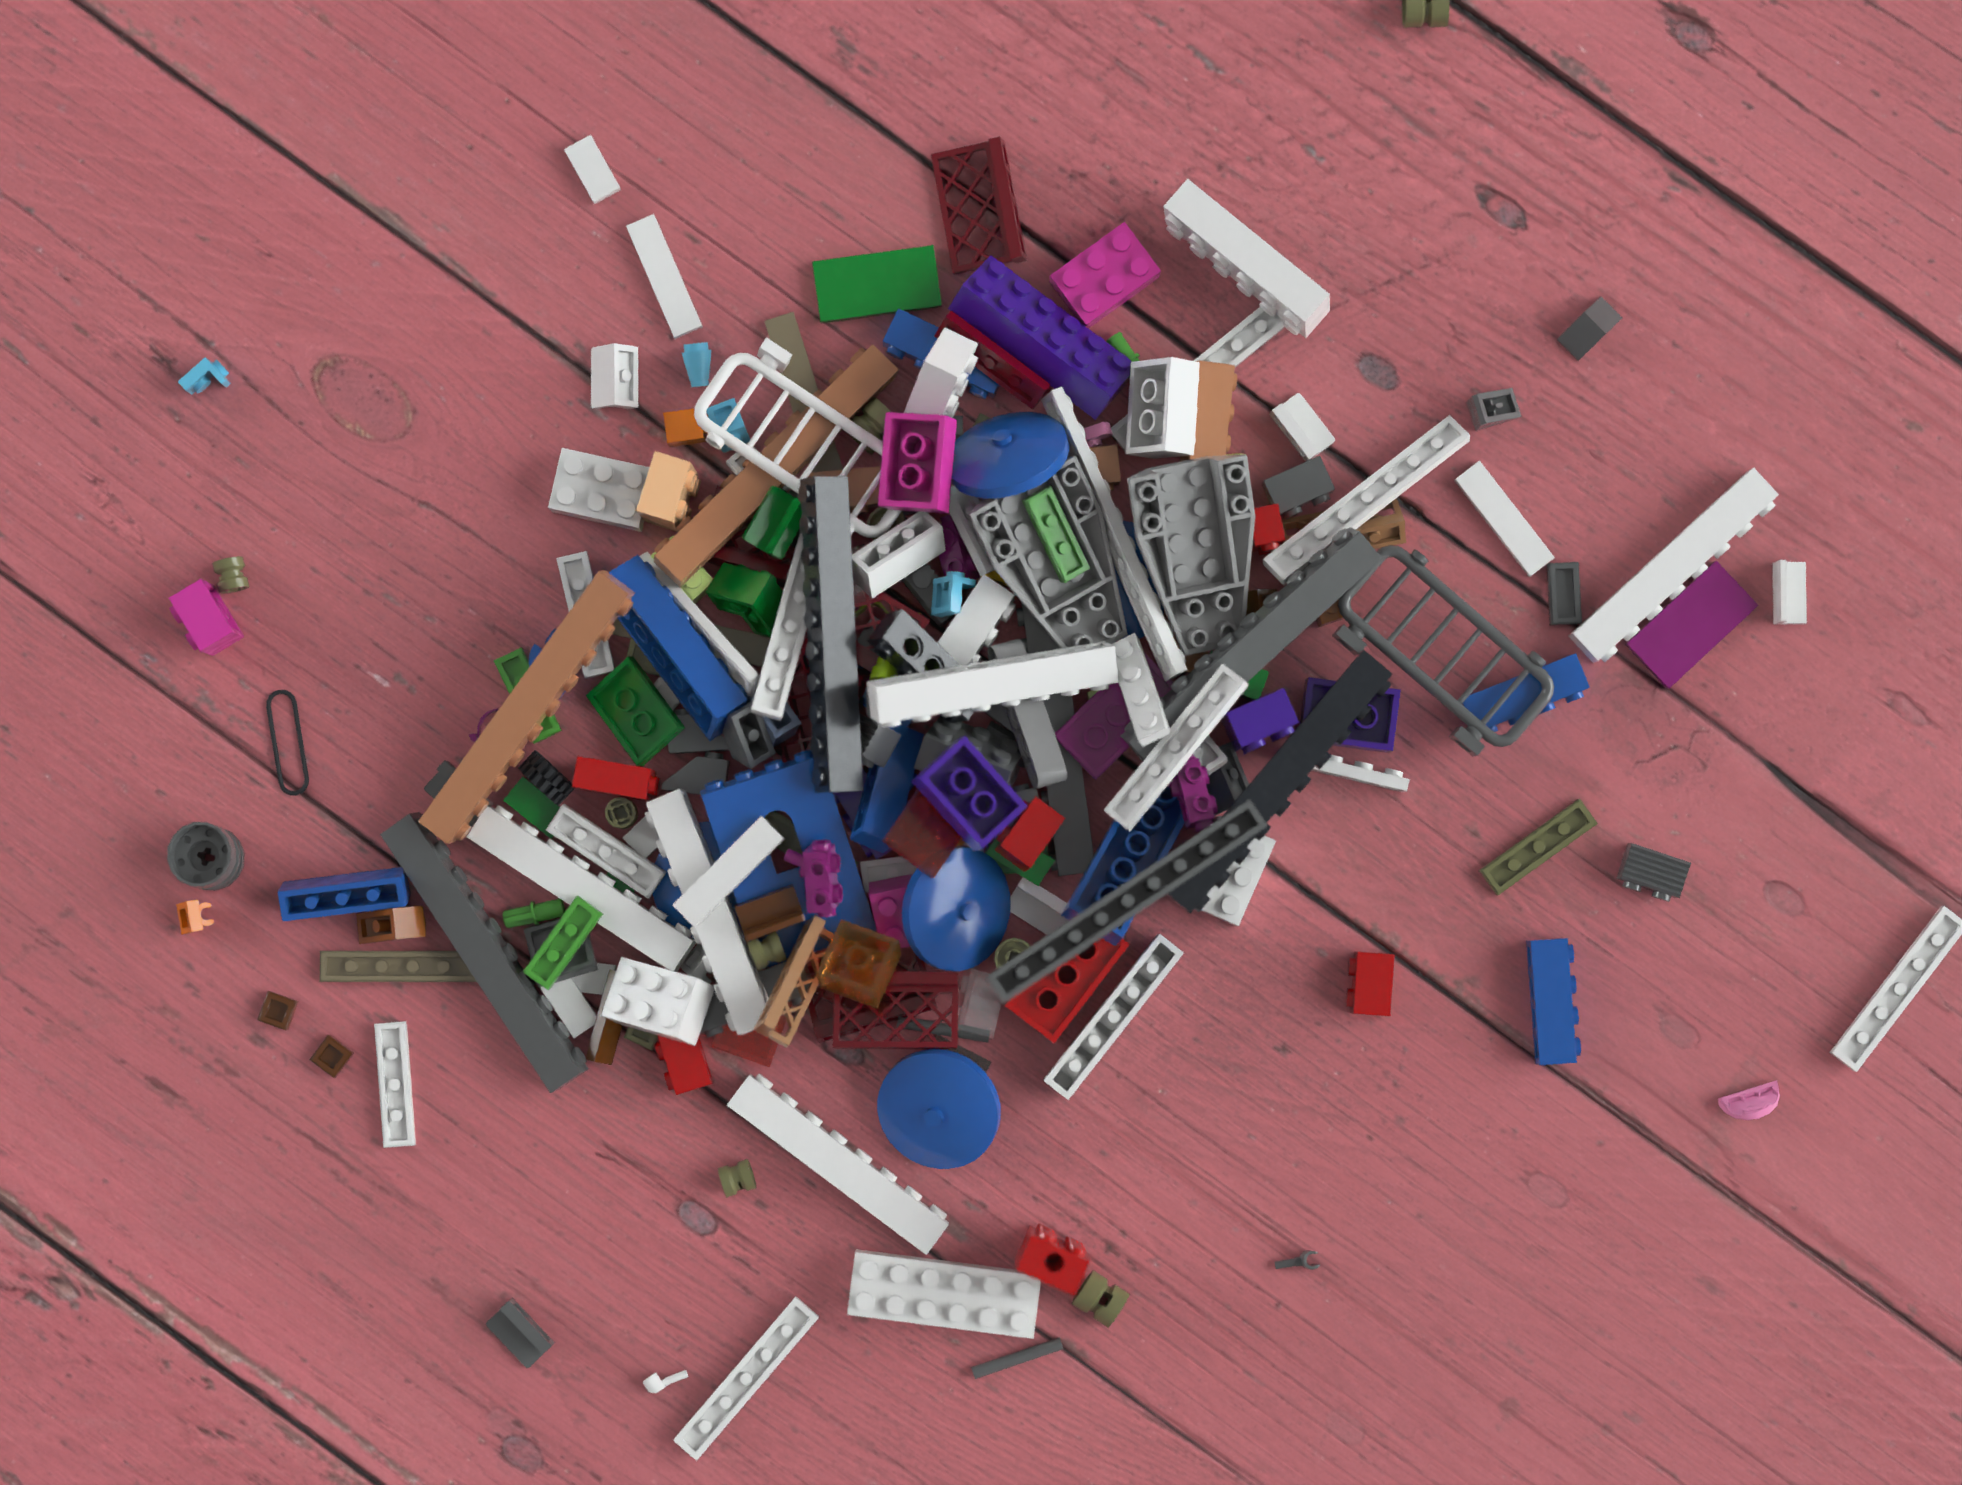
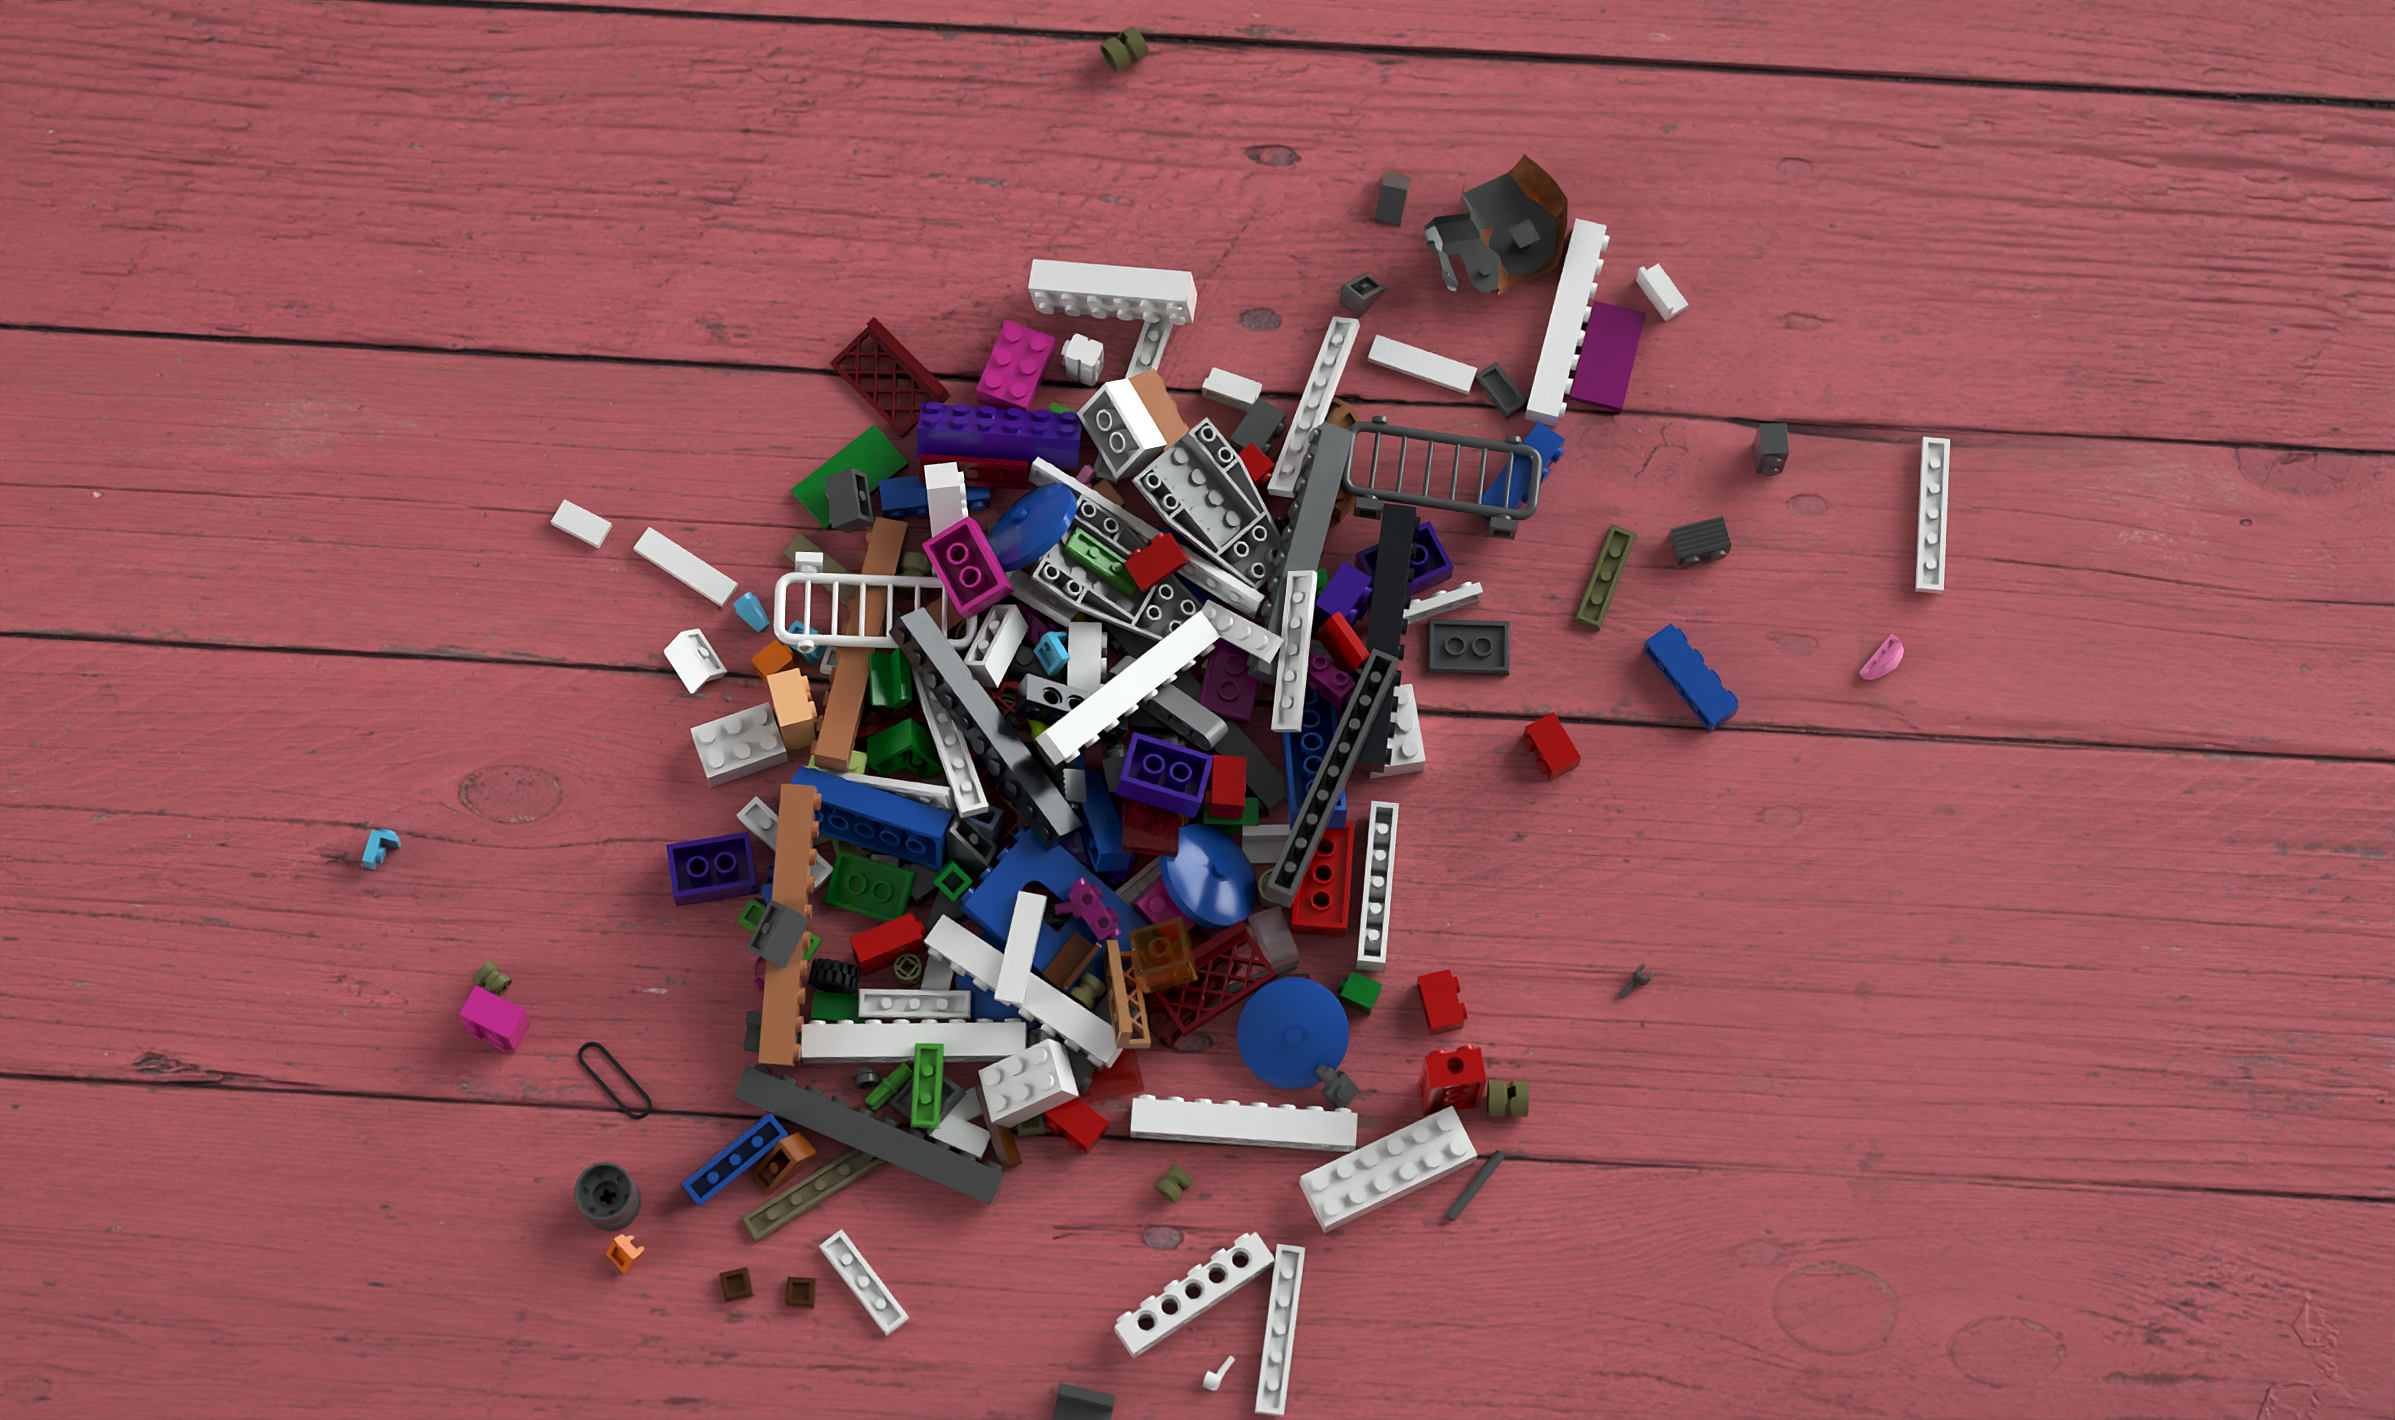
camera: 35 degrees left, 15 degrees down
(499, 598) = (712, 869): none -> dark purple brick
(505, 714) = (777, 934): none -> dark grey panel
(518, 891) = (866, 1077): none -> dark grey plate
(608, 1304) = (1139, 1341): none -> white brick
(710, 759) = (952, 879): none -> green brick
(856, 312) = (849, 500): none -> dark grey brick
(949, 1185) = (1338, 1087): none -> dark grey plate
(1029, 1106) = (1359, 992): none -> green brick
(1100, 1165) = (1440, 1002): none -> red brick
(1104, 570) = (1156, 561): none -> red brick
(1174, 308) = (1083, 359): none -> white brick
(1229, 768) = (1342, 644): none -> red tile
(1359, 832) = (1468, 647): none -> dark grey tile
(1677, 442) = (1508, 230): none -> dark grey piece
(1784, 826) = (1771, 448): none -> dark grey brick

